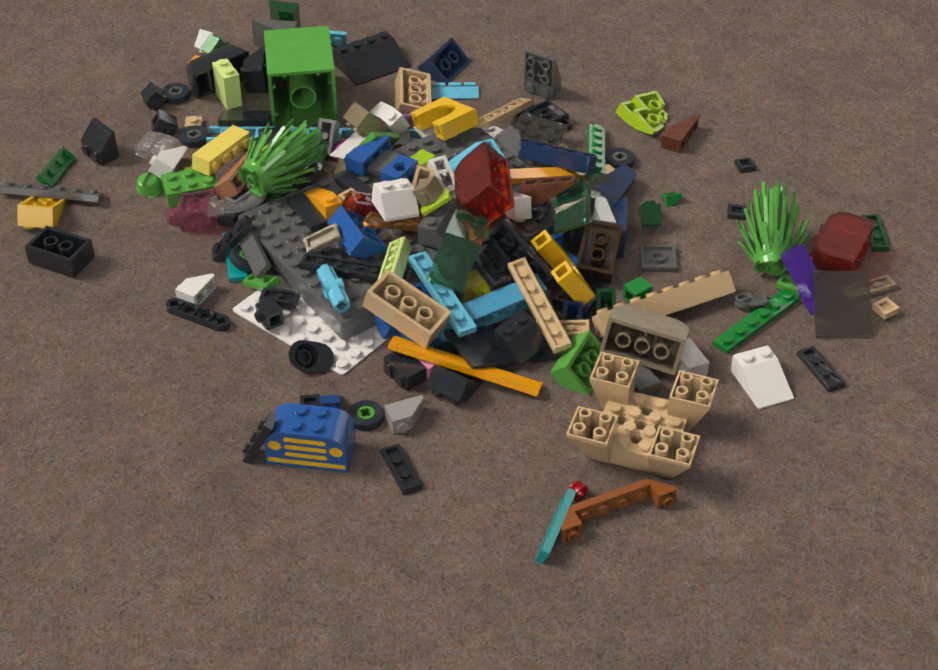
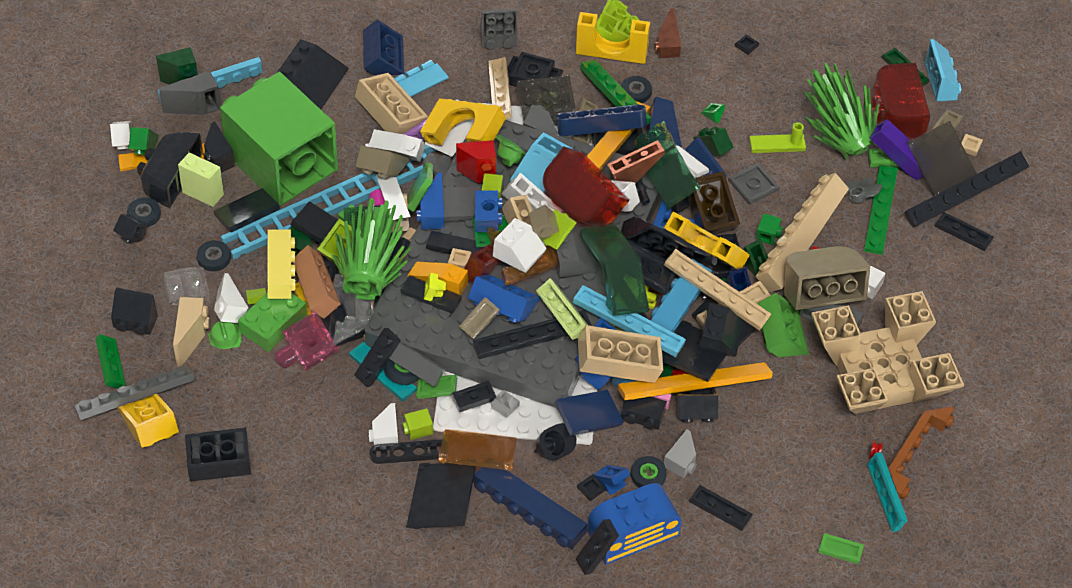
camera: 35 degrees left, 10 degrees up
(121, 167) = (190, 327): none -> tan slope
(164, 123) = (174, 256): black brick -> none
(188, 351) = (441, 495): none -> black piece
(193, 120) = (196, 239): tan plate -> none
(221, 298) = (417, 424): none -> lime brick
(244, 333) = (477, 449): none -> clear orange piece
(245, 385) = (531, 505): none -> dark blue brick
(269, 314) = (481, 418): black brick -> none
(299, 313) = (505, 403): none -> light grey tile
(307, 203) = (434, 287): none -> neon yellow tile
(330, 131) = (356, 190): light grey slope -> none
(333, 288) = (534, 365): medium azure piece -> none
(357, 349) = (589, 412): none -> dark blue tile
(426, 136) = (476, 159): none -> red slope
(458, 143) = (509, 151): none -> bright green piece
(475, 550) = (841, 548): none -> bright green tile
(609, 114) = (591, 43): none -> yellow arch
(719, 243) = (779, 143): none -> lime piece
(736, 212) = (779, 101): black tile -> none
(761, 377) = (930, 265): white slope -> none
(851, 337) = (966, 189): none -> black plate
(904, 244) = (941, 72): none -> medium azure slope

